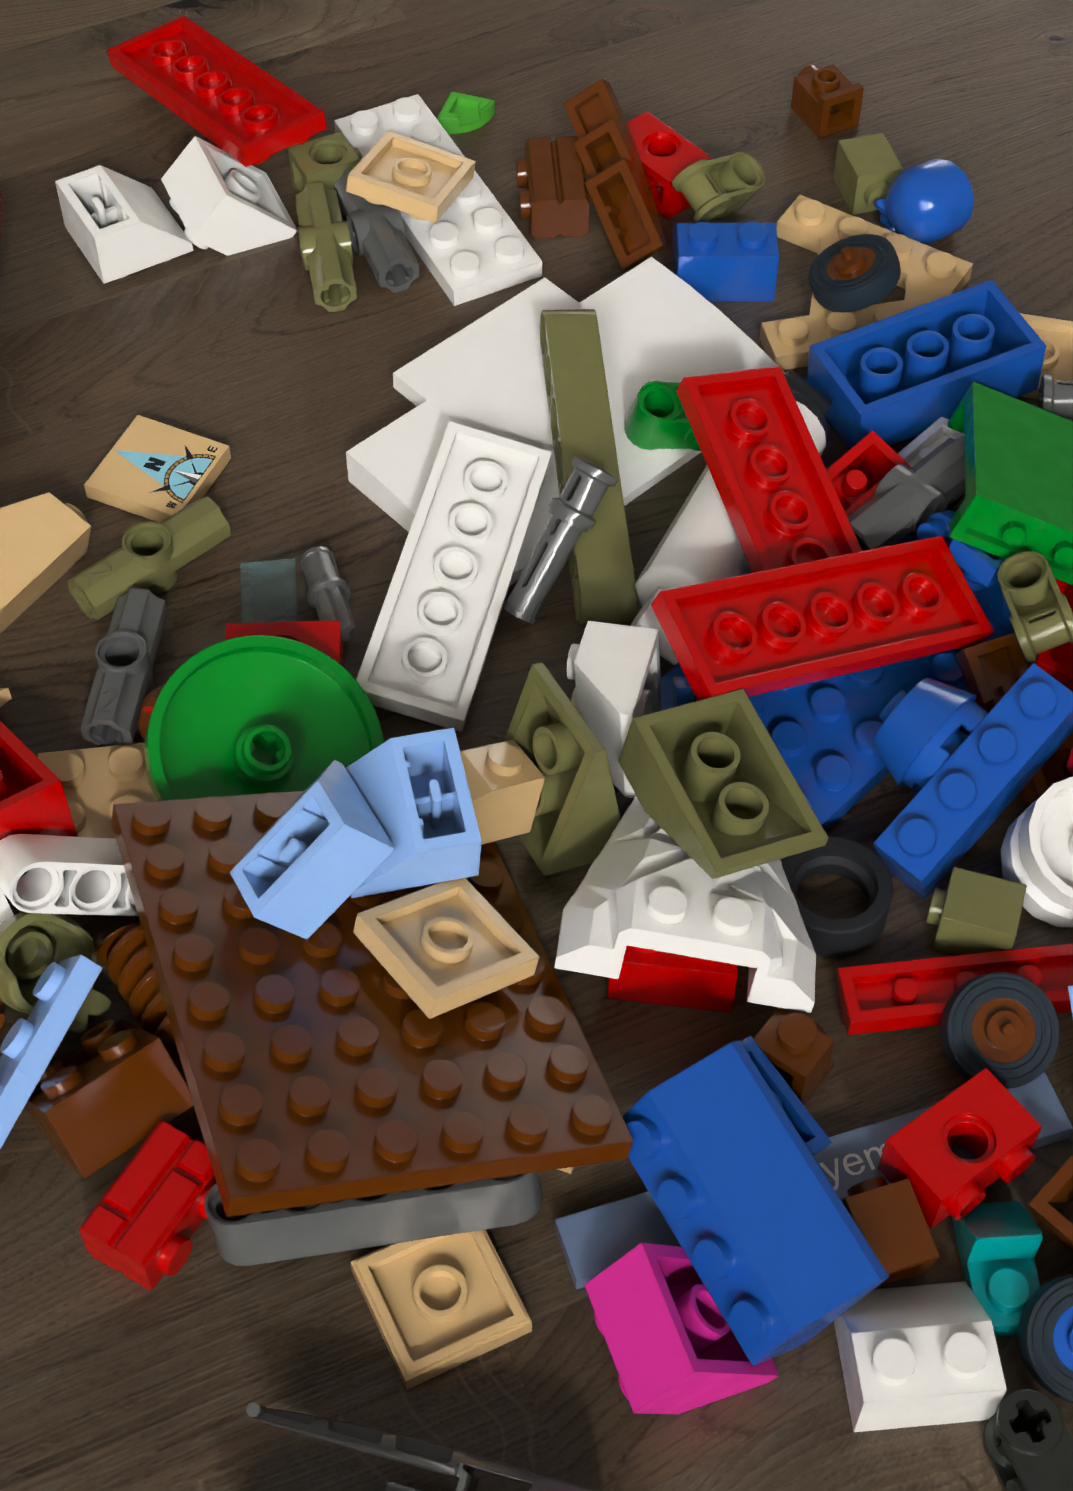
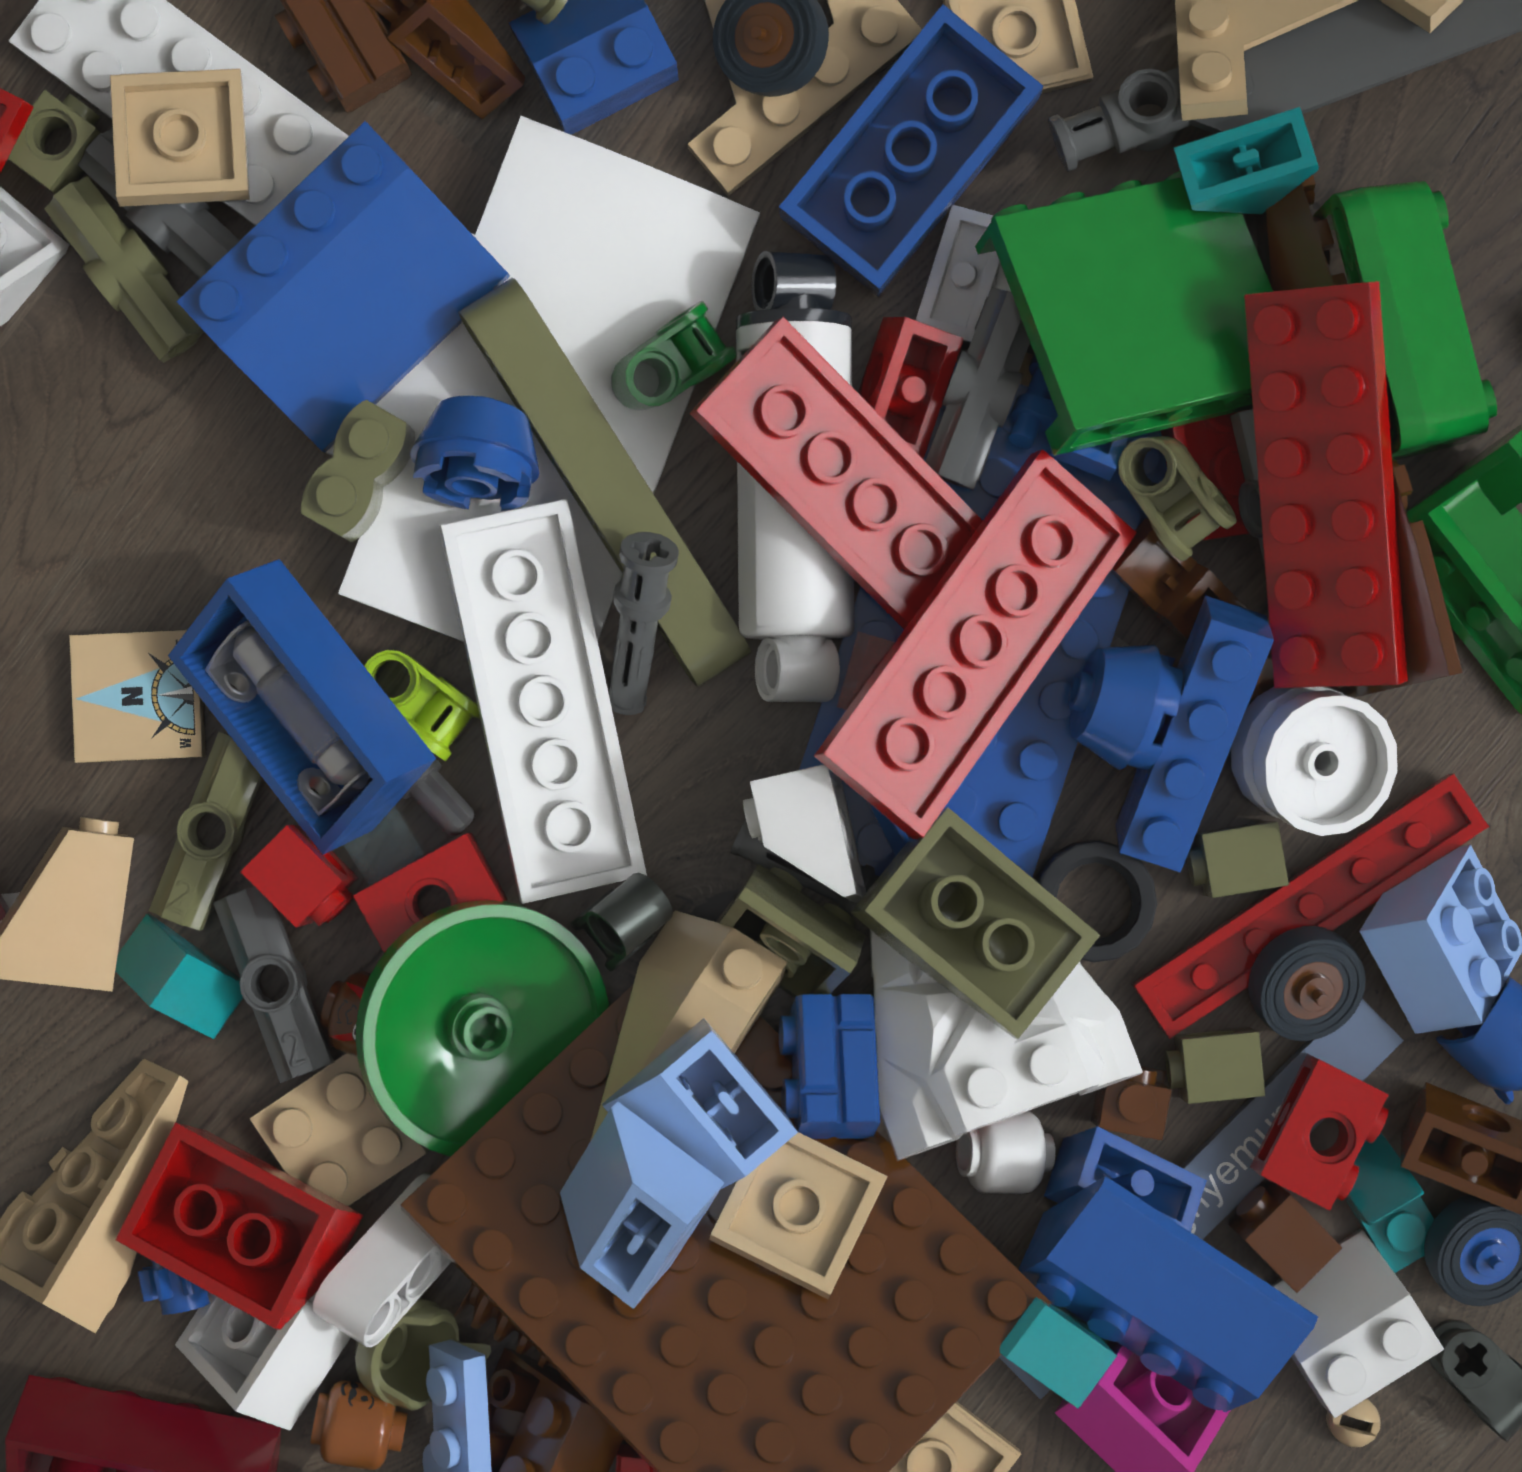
camera: 30 degrees left, 35 degrees up
(58, 648) = (178, 977): none -> teal slope
(194, 589) = (300, 878): none -> red brick
(272, 489) = (301, 705): none -> blue piece
(359, 539) = (427, 701): none -> lime piece
(409, 372) = (366, 456): none -> olive brick
(429, 709) = (625, 918): none -> pearl dark grey piece
(464, 279) = (343, 286): none -> blue slope
(500, 386) = (477, 452): none -> blue cone
(538, 874) = (832, 1066): none -> blue brick
(615, 1191) = (1058, 1351): none -> teal slope
(651, 1045) = (1006, 1155): none -> white head
(873, 1466) = (1354, 1437): none -> tan hinge
(883, 1065) = (1216, 1065): none -> olive brick

